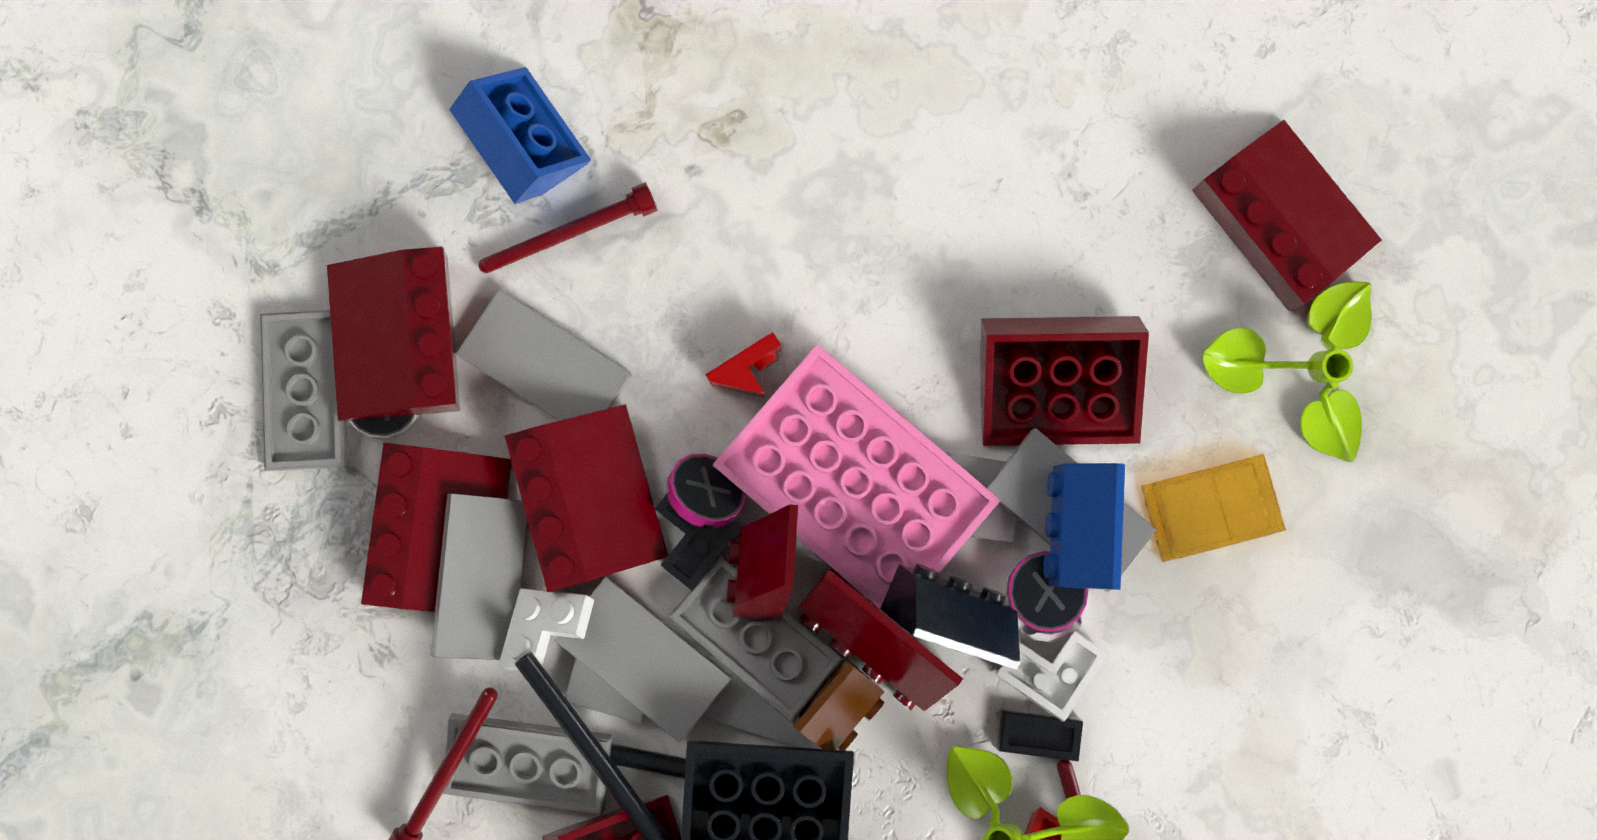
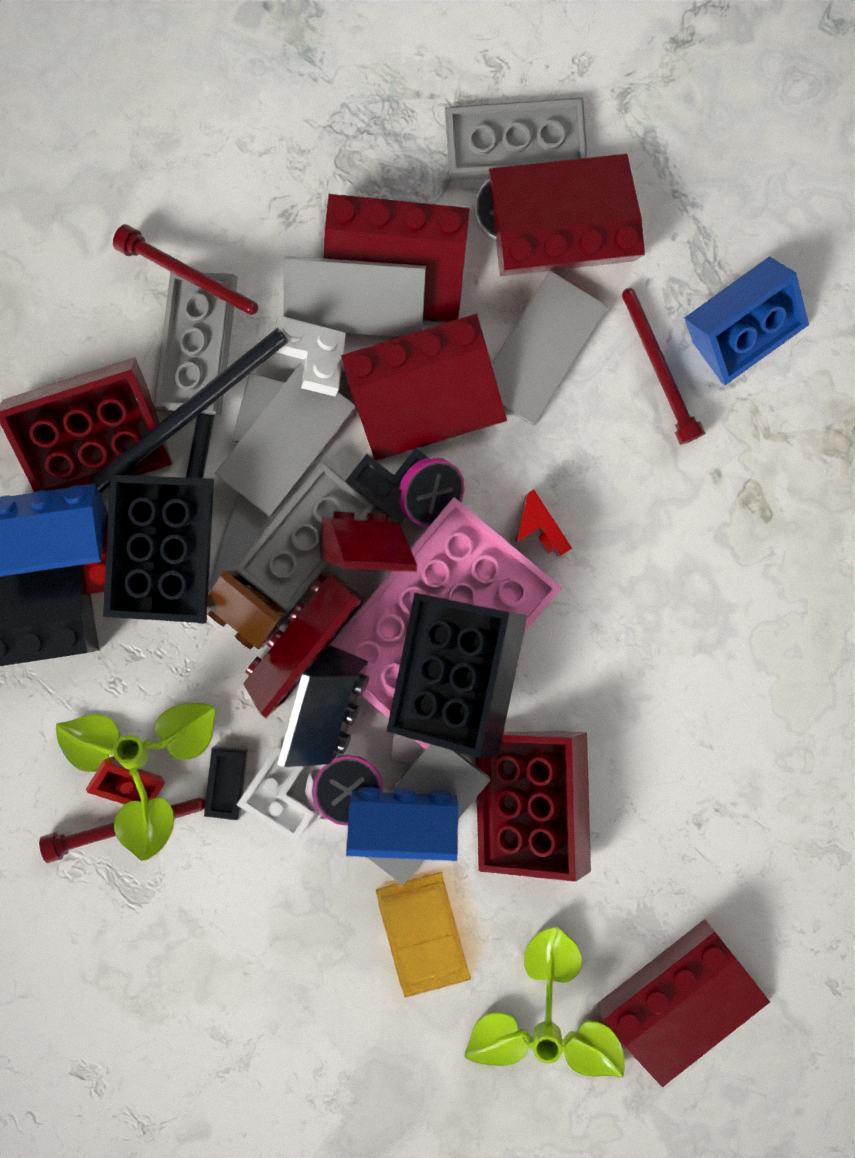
camera: 90 degrees right, 5 degrees up
(915, 464) = (456, 675): none -> black slope

